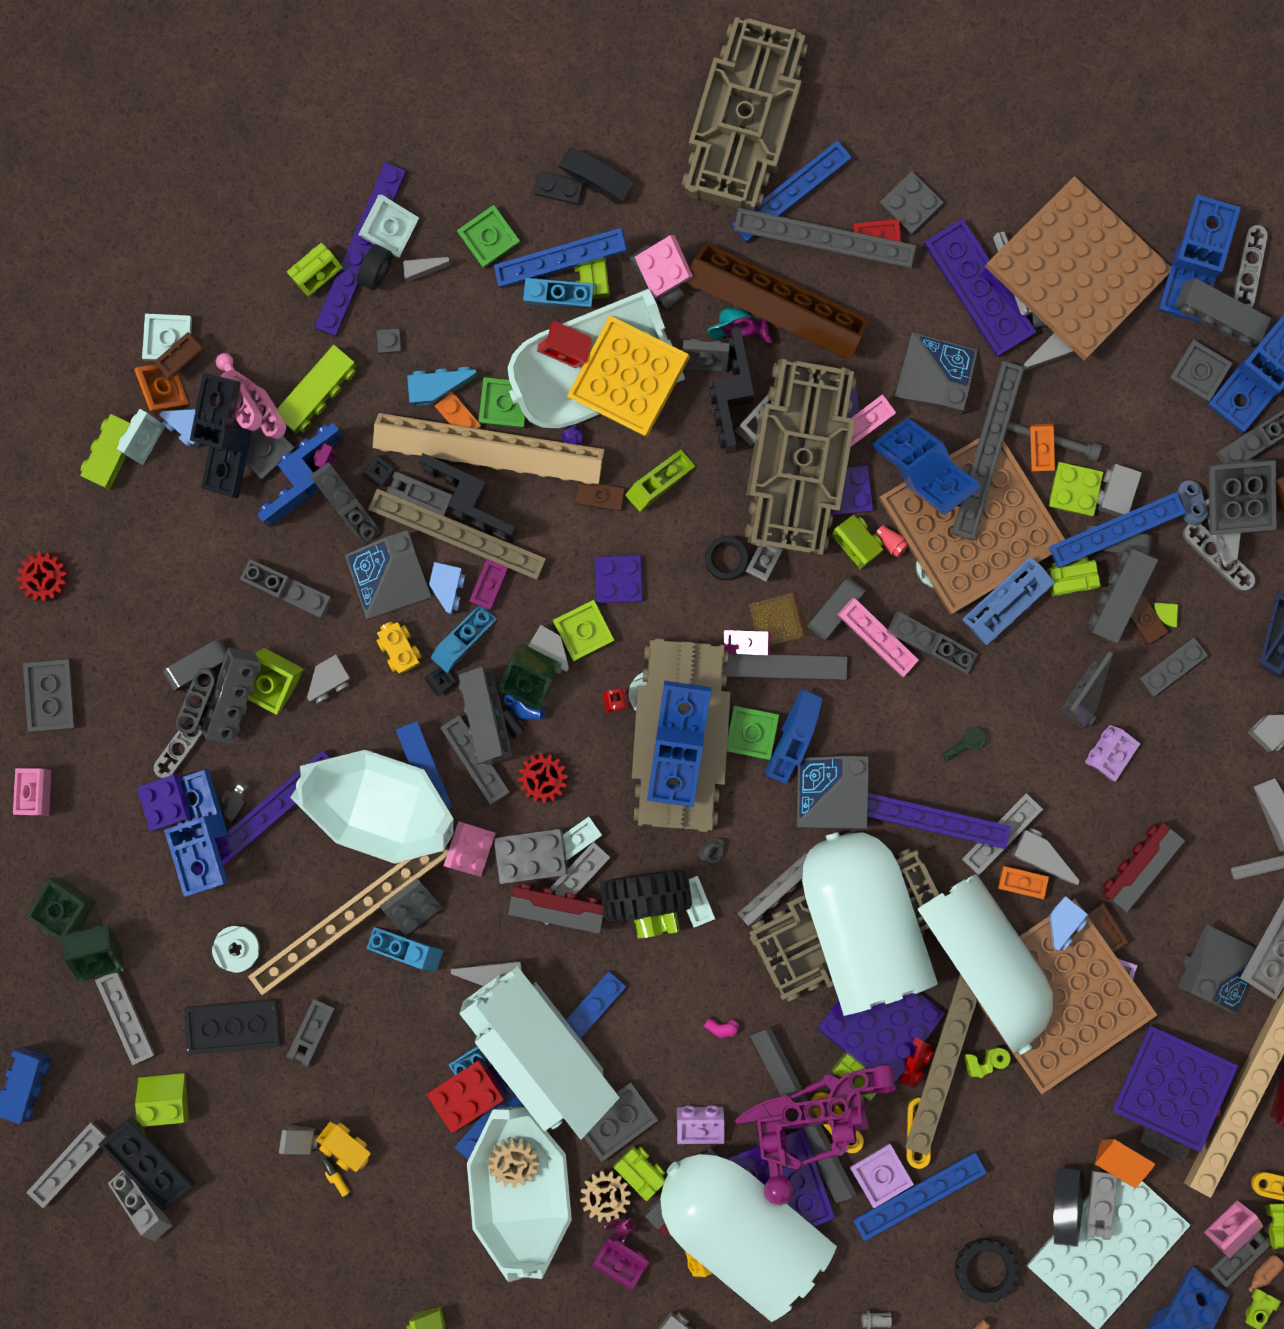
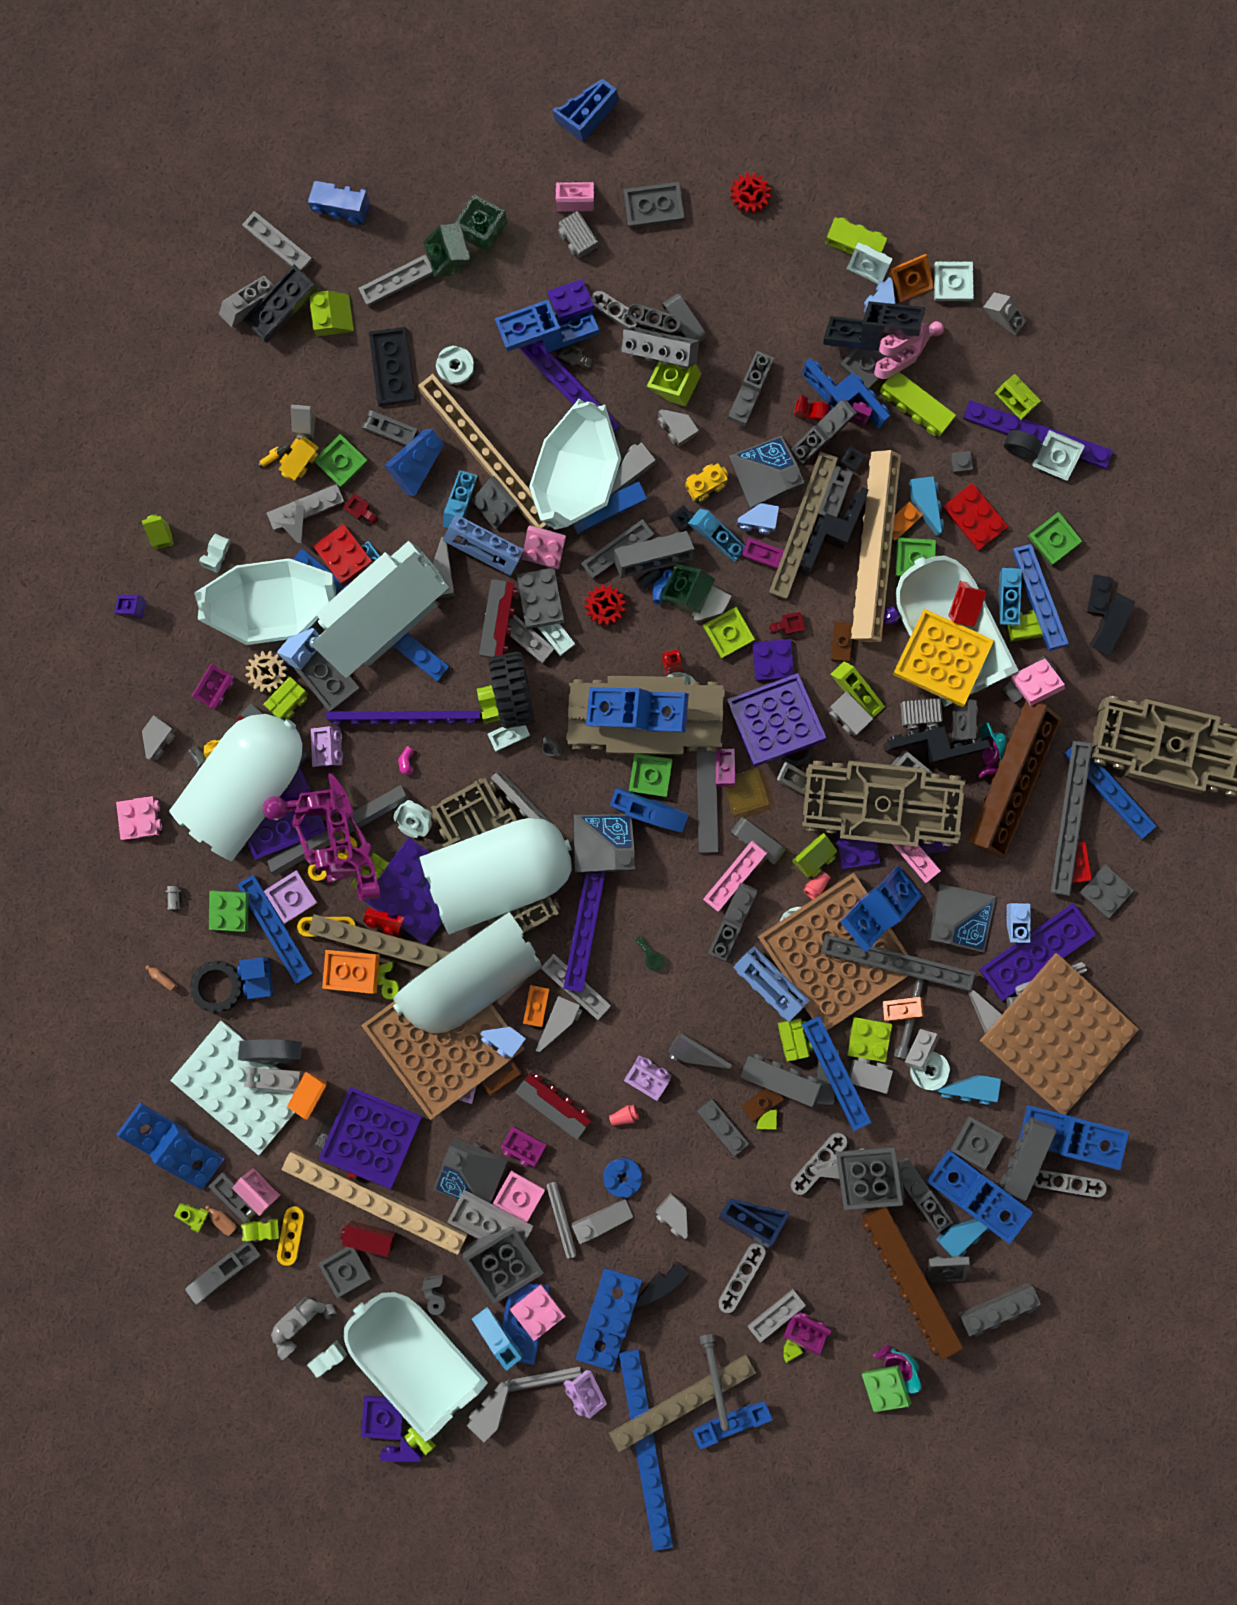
camera: 85 degrees right, 0 degrees up
(82, 790) = (577, 234): none -> light grey brick
(179, 356) = (938, 290): reddish brown plate -> none
(209, 278) = (1005, 312): none -> light grey slope
(317, 516) = (815, 410): none -> red leg
(348, 1095) = (340, 461): none -> bright green plate
(354, 1002) = (414, 461): none -> blue wedge
(372, 734) = (634, 465): none -> light grey slope
(403, 1141) = (313, 505): none -> light grey plate
(408, 1075) = (358, 507): none -> dark red plate
(418, 268) = (1024, 482): light grey slope -> none
(426, 1155) = (295, 525): none -> light grey slope
(452, 1253) = (216, 553): none -> light aqua leg
(456, 329) = (975, 516): none -> red plate
(462, 923) = (483, 544): none -> medium blue brick
(514, 1160) = (291, 595): tan gear -> none
(576, 555) = (790, 624): none -> dark red plate
(579, 1156) = (297, 649): none -> light blue slope
(624, 1226) = (242, 688): flat silver piece -> none
(668, 1039) = (395, 717): none -> dark purple plate
(689, 490) = (849, 714): none -> light grey brick
(690, 406) = (921, 712): none -> light grey brick
(693, 578) = (776, 720): none -> dark purple plate
(706, 1284) = (197, 756): none -> dark grey pin
(794, 1011) = (410, 811): none -> light aqua plate
(895, 1252) = (228, 910): none -> bright green plate
(945, 306) = (1018, 922): none -> light blue slope
(975, 1104) = (351, 971): none -> orange plate
(978, 1220) = (257, 977): none -> blue brick
(1090, 428) = (922, 1049): none -> light grey plate
(1126, 426) = (939, 1075): none -> light aqua plate
(1136, 369) = (976, 1087): none -> dark azure slope
(1156, 781) = (625, 1116): none -> coral cone
(1190, 905) = (523, 1147): none -> magenta bracket
(1192, 501) = (864, 1138): sand blue plate -> none
(1232, 801) = (625, 1188): none -> blue plate
(1248, 913) = (518, 1196): none -> bright pink plate

